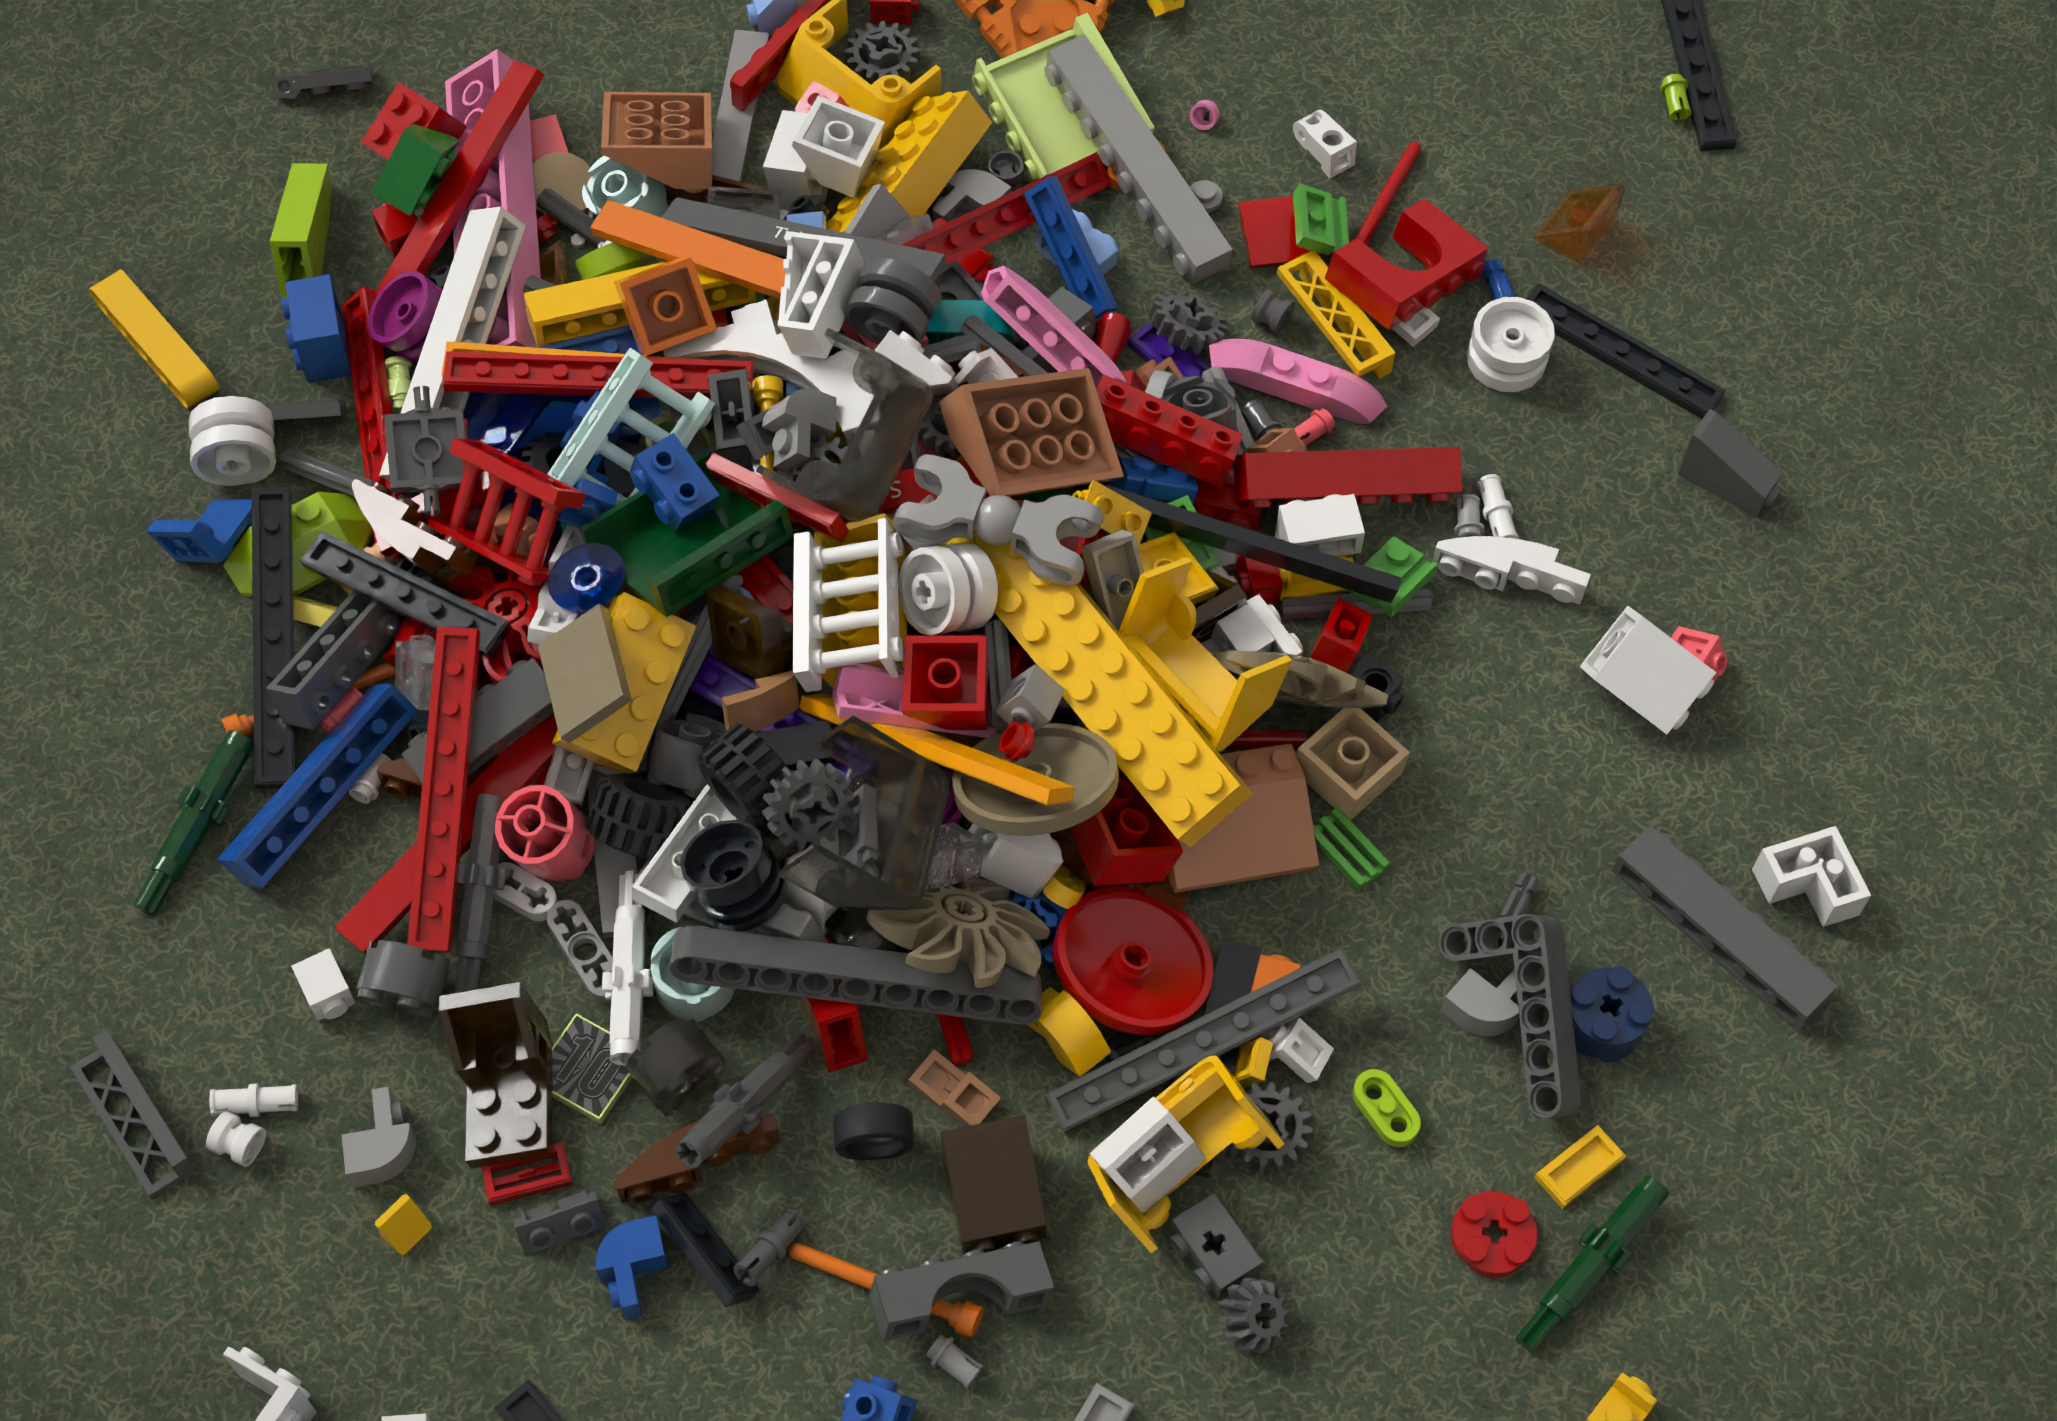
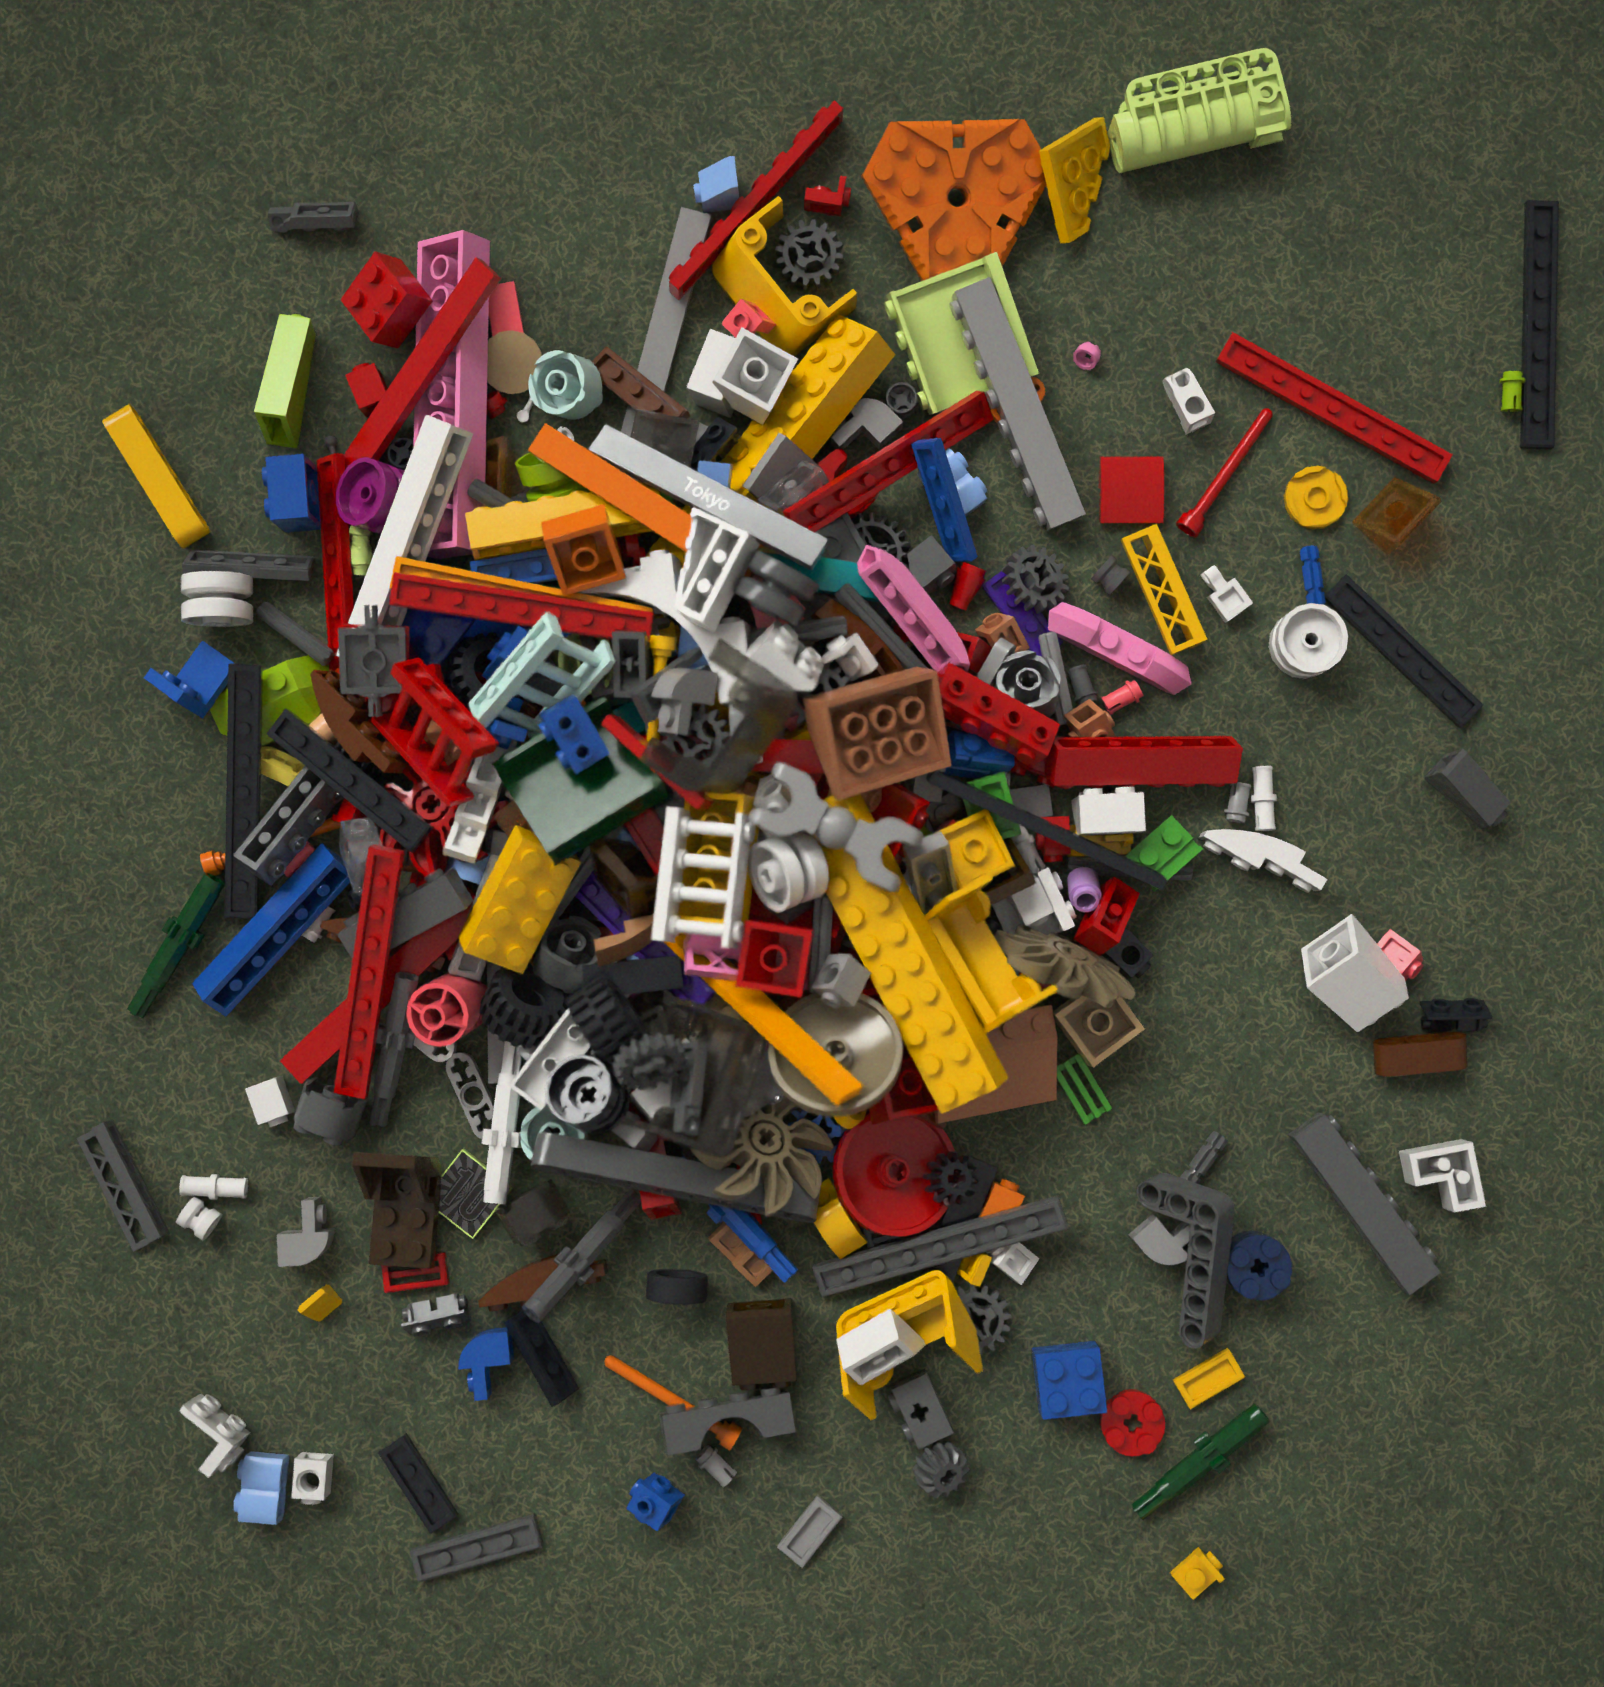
camera: 15 degrees right, 25 degrees up
(415, 168) = (384, 350): green slope -> none
(568, 215) = (521, 400): dark grey axle -> none
(581, 567) = (481, 805): clear blue dish -> none
(584, 673) = (484, 904): dark tan tile -> none
(661, 136) = (599, 338): nougat slope -> none
(770, 1247) = (590, 1362): dark grey pin -> none
(930, 1033) = (755, 1238): none -> blue piece
(1017, 741) = (825, 1020): red plate -> none
(1117, 510) = (934, 806): yellow hinge -> none
(1203, 955) = (950, 1191): none -> black gear
(1208, 194) = (1072, 443): light grey plate -> none
(1314, 626) = (1084, 889): none -> lavender brick
(1319, 220) = (1167, 496): bright green plate -> none
(1389, 1108) = (1069, 1313): lime plate -> none
(1396, 293) = (1215, 584): red arch -> none
(1400, 1183) = (1069, 1380): none -> blue brick
(1474, 214) = (1318, 506): none -> yellow tile
(1486, 132) = (1334, 408): none -> red plate
(1748, 752) = (1420, 1054): none -> reddish brown beam
(1795, 707) = (1468, 1013): none -> black hinge

